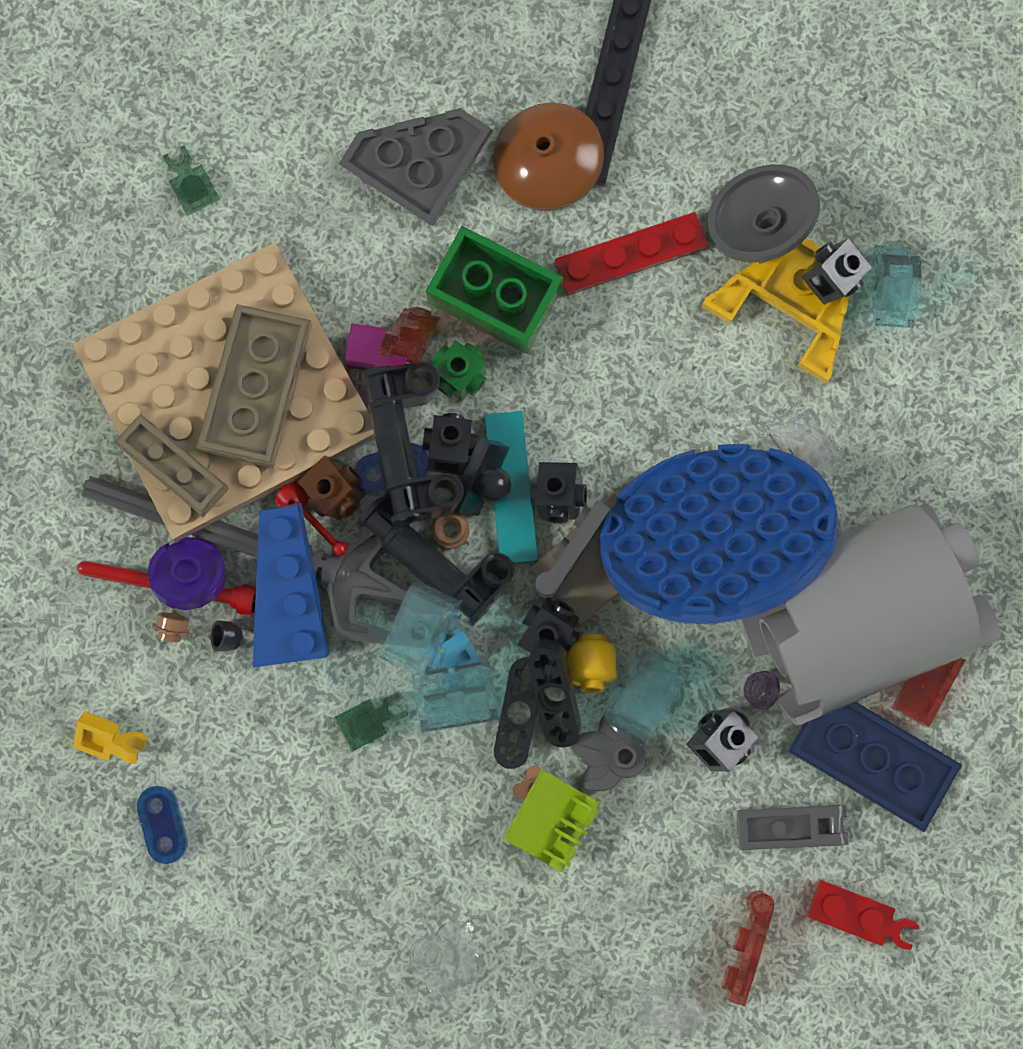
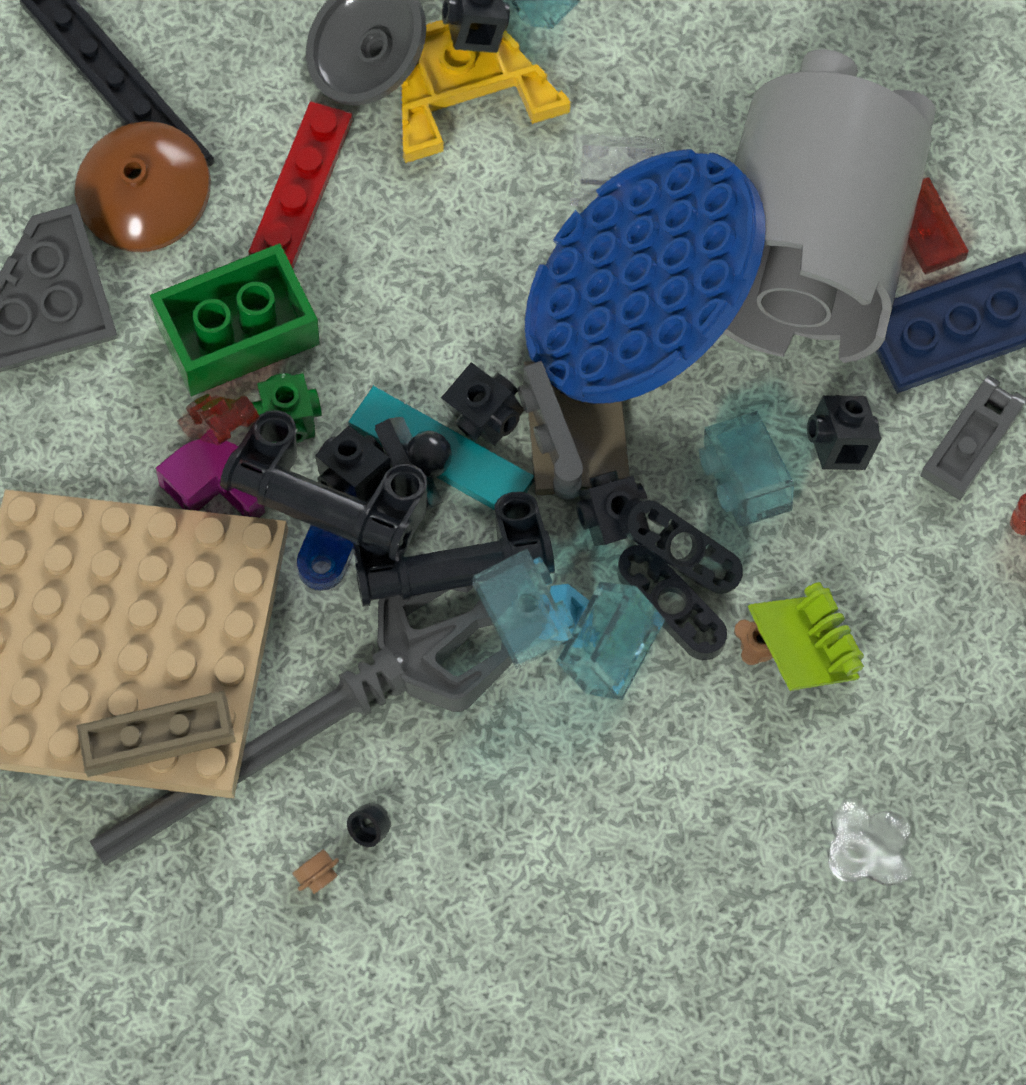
camera: 55 degrees left, 15 degrees down
(103, 740) = (377, 1022): yellow plate -> none
(165, 823) = (514, 1032): clear blue plate -> none
(187, 573) = (275, 813): dark purple tile -> none
(239, 597) = (343, 782): red piece -> none
(254, 386) = (141, 600): dark tan tile -> none
(287, 596) = (387, 730): blue wing -> none
(292, 494) = (286, 657): red hinge -> none
(333, 488) = (291, 602): reddish brown brick -> none
(364, 722) = (567, 750): clear green plate -> none
(454, 541) = (440, 522): medium nougat plate -> none
(592, 663) = (679, 491): yellow head -> none
(602, 754) = (773, 554): dark grey plate -> none
(762, 689) = (811, 368): clear purple plate -> none

